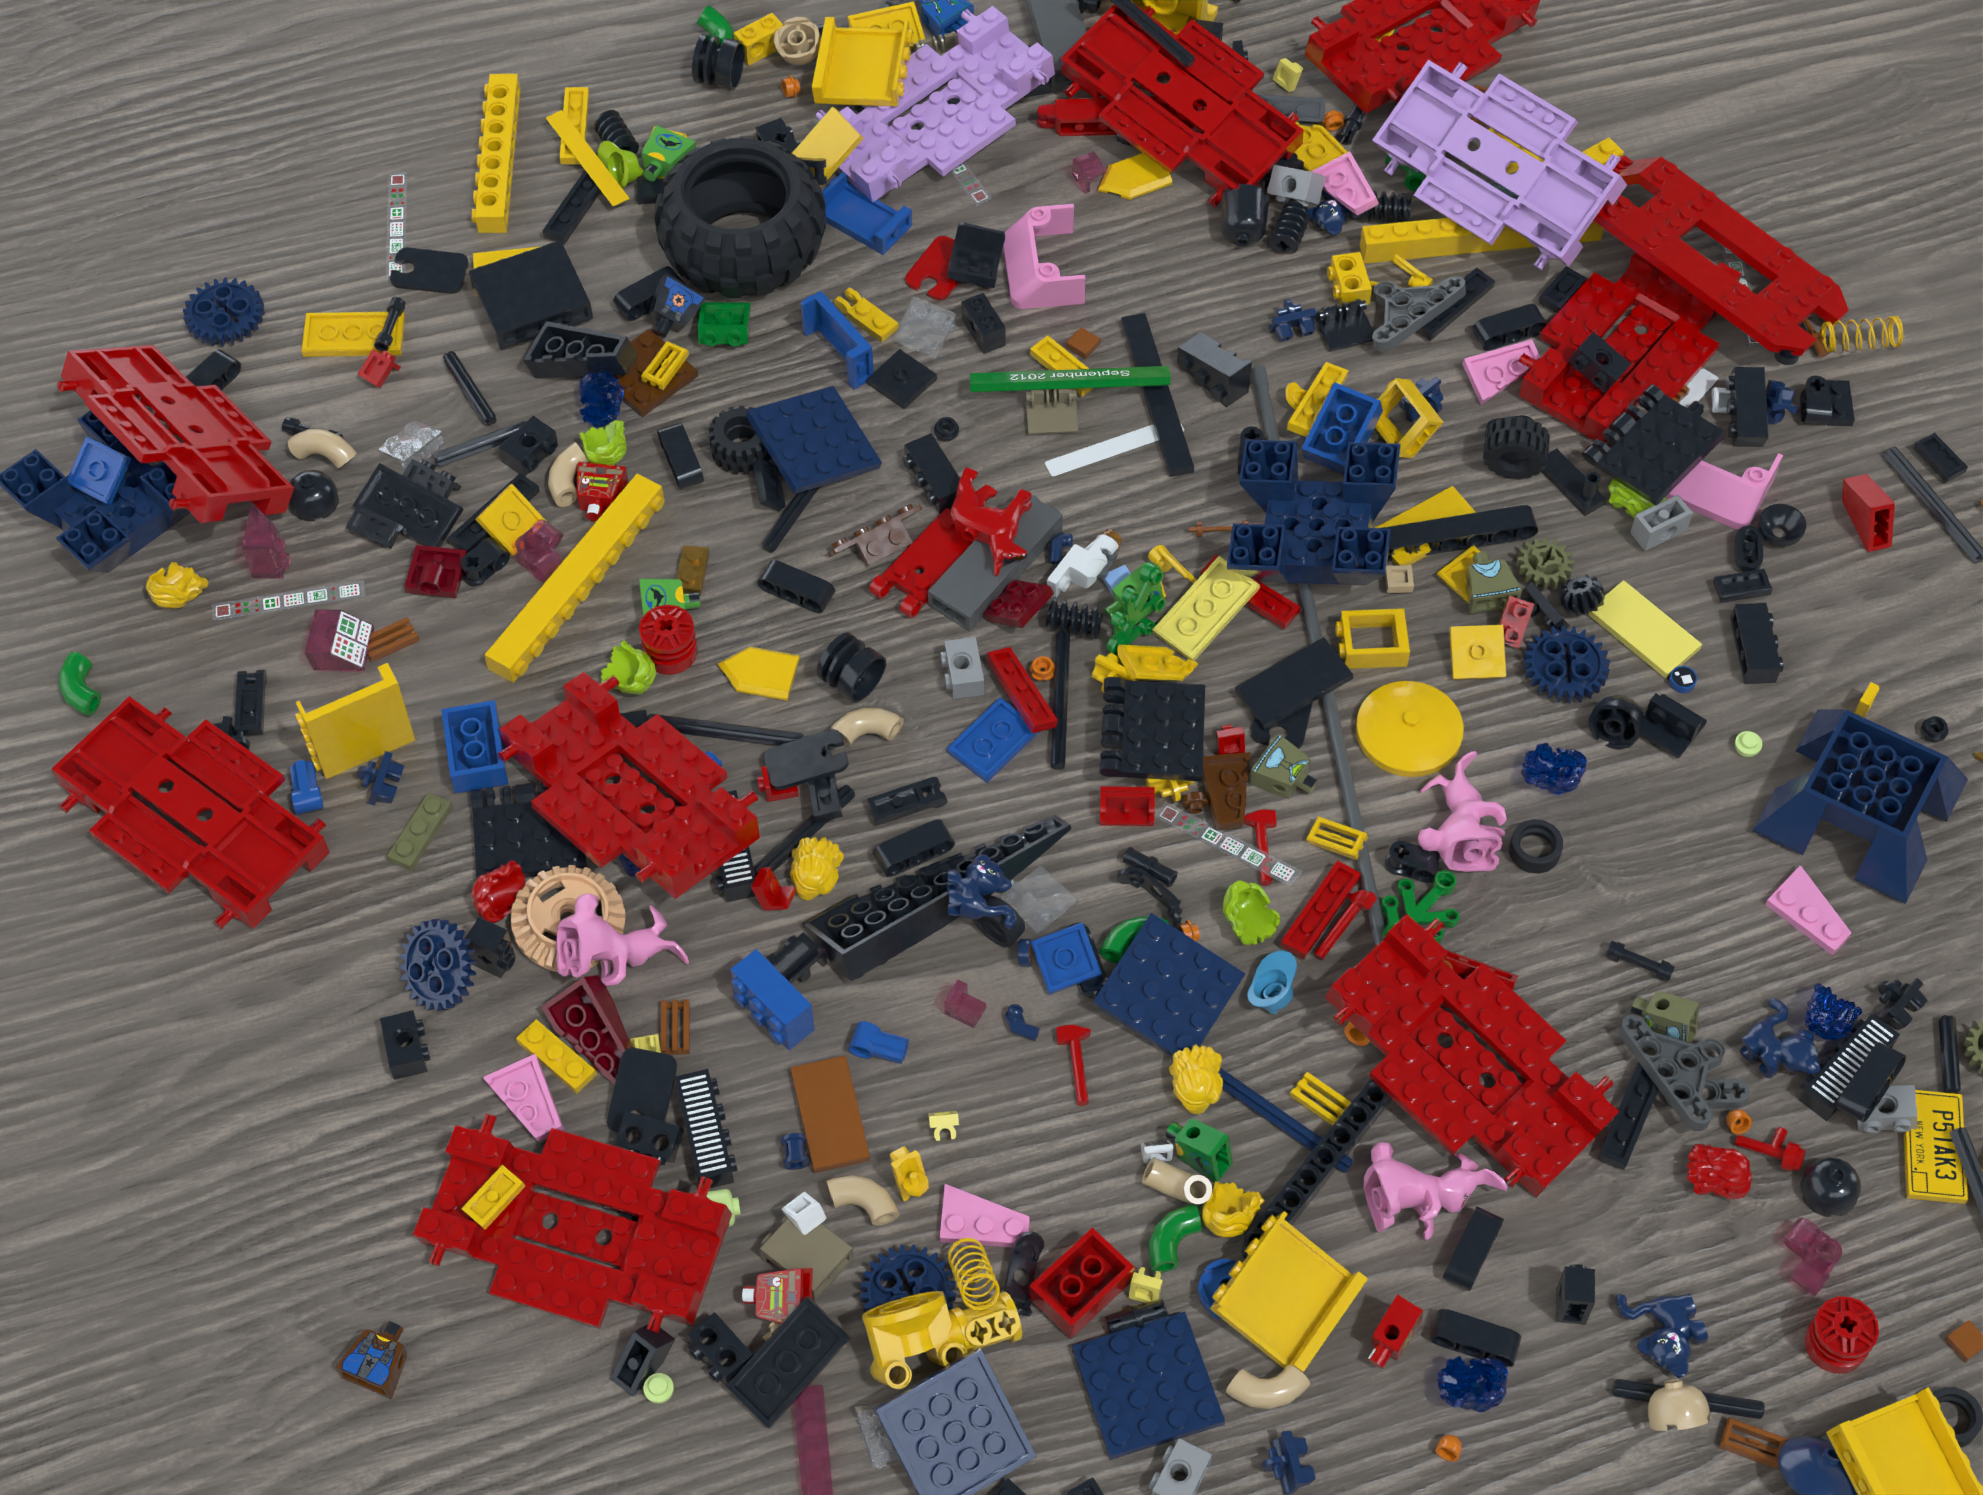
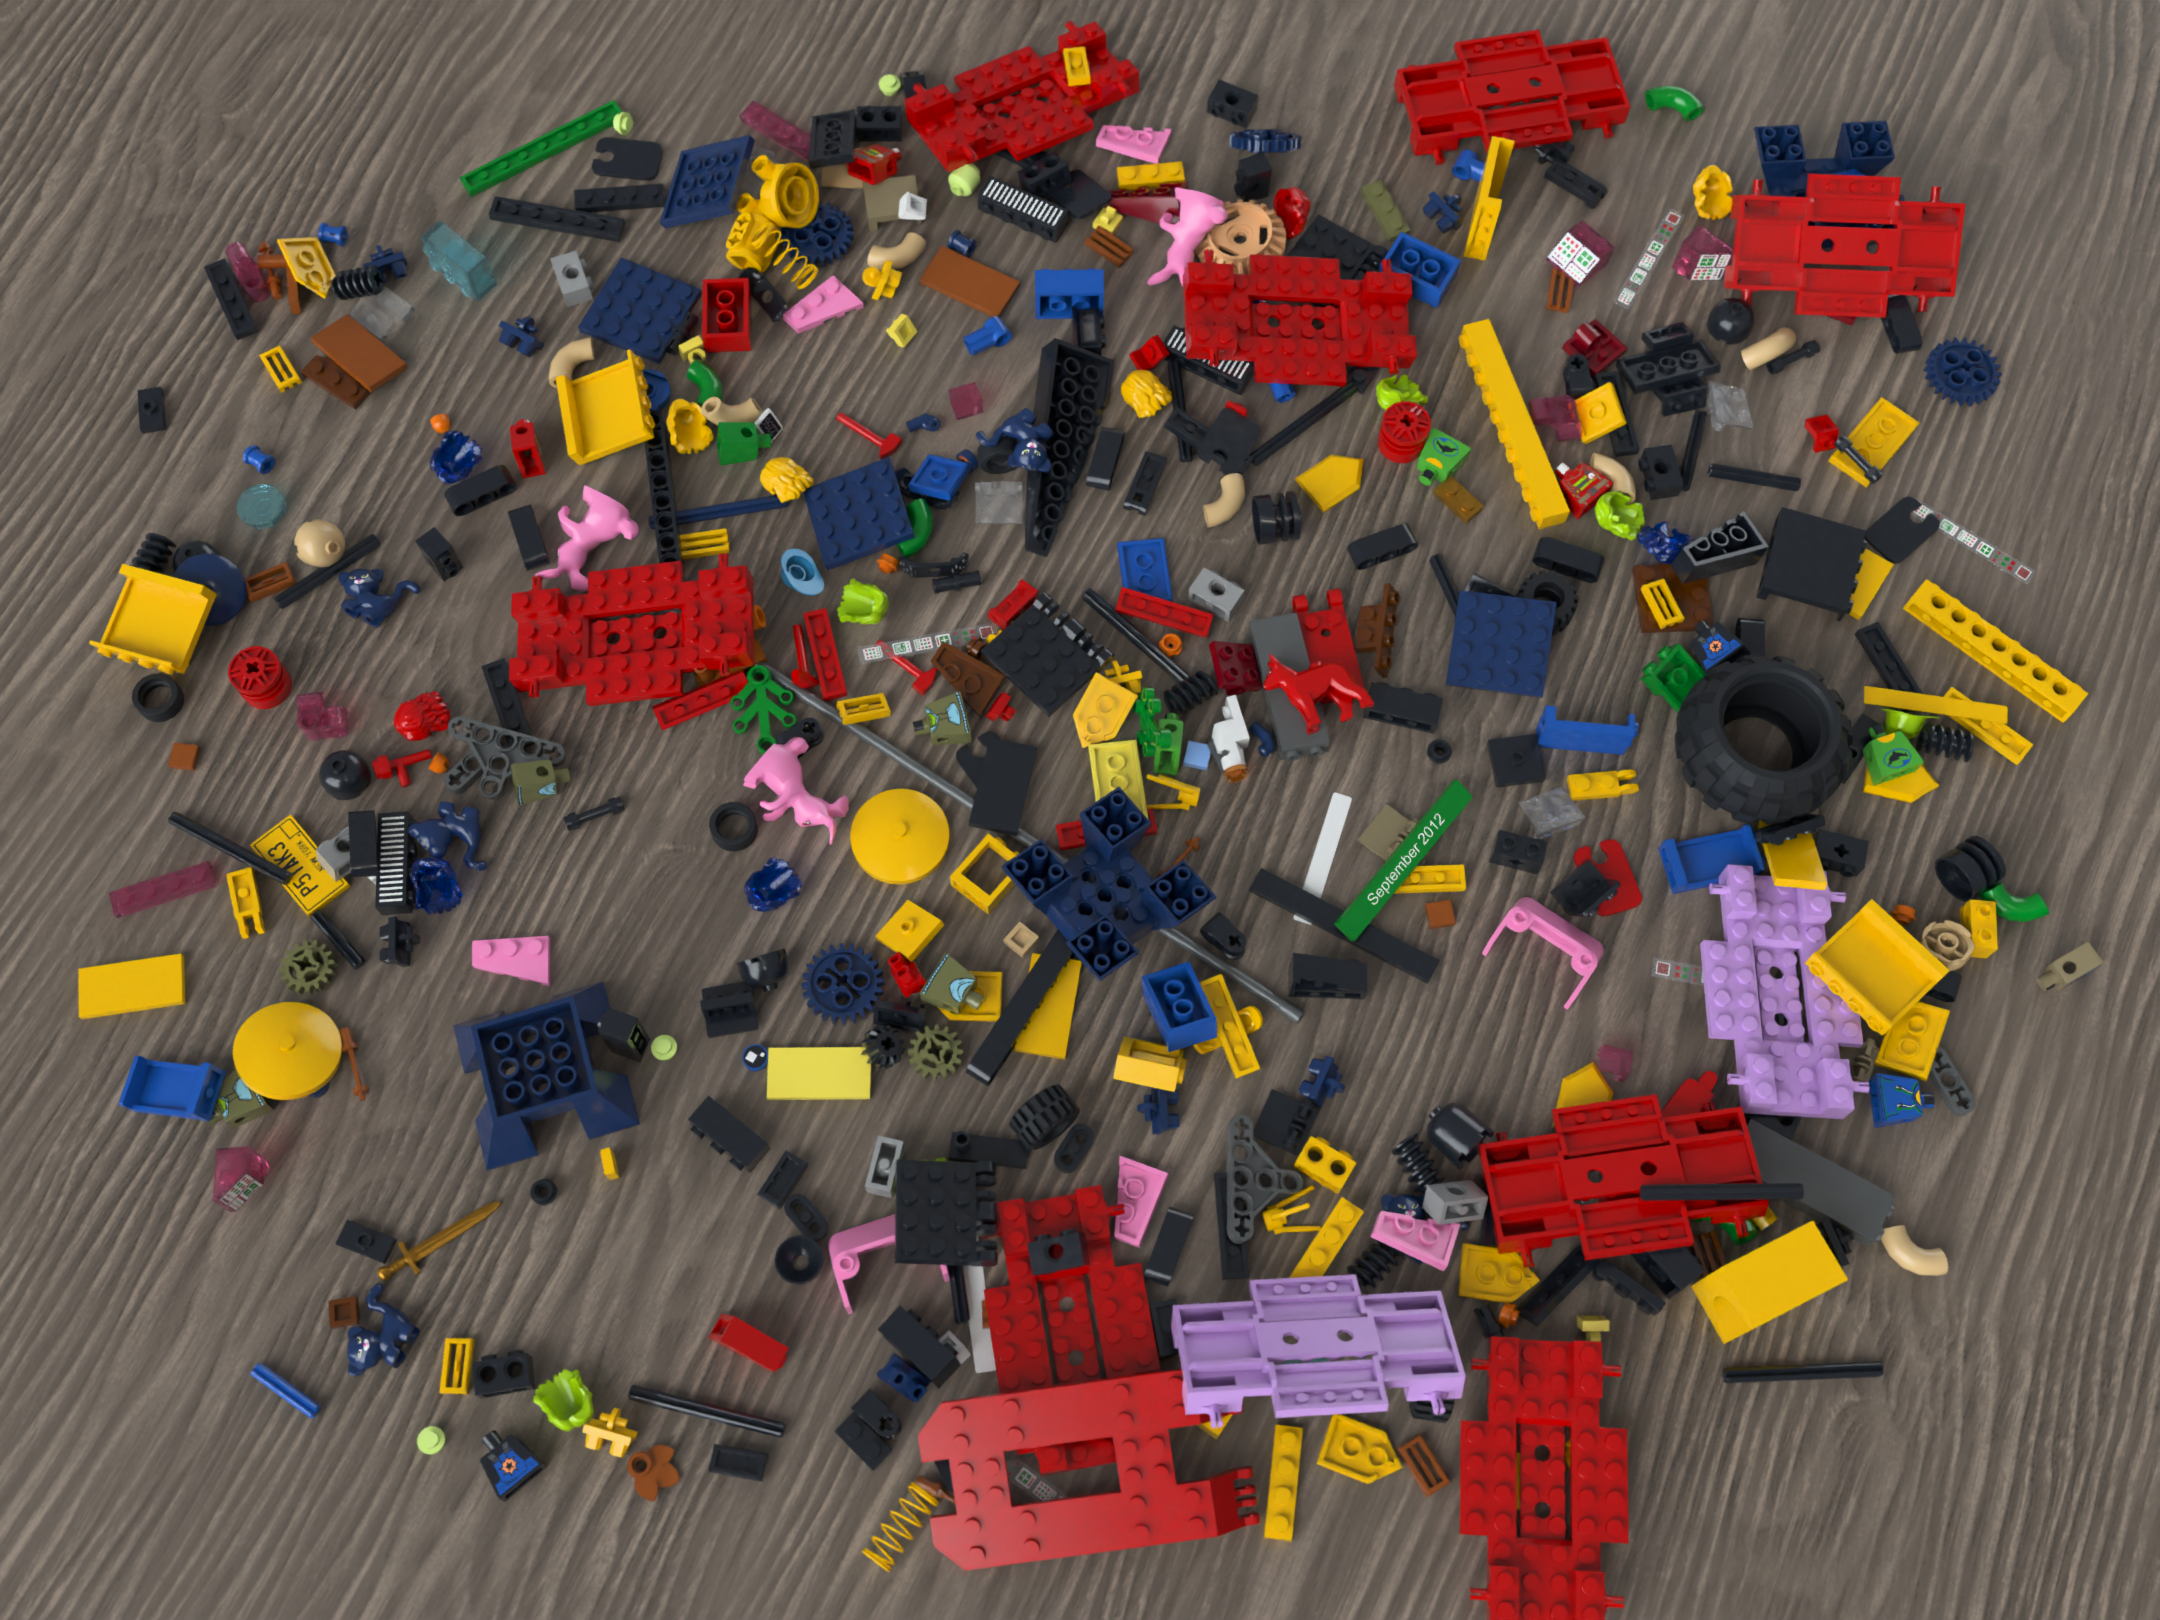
camera: 130 degrees right, 10 degrees up
(1780, 752) = (623, 1034): none -> black brick

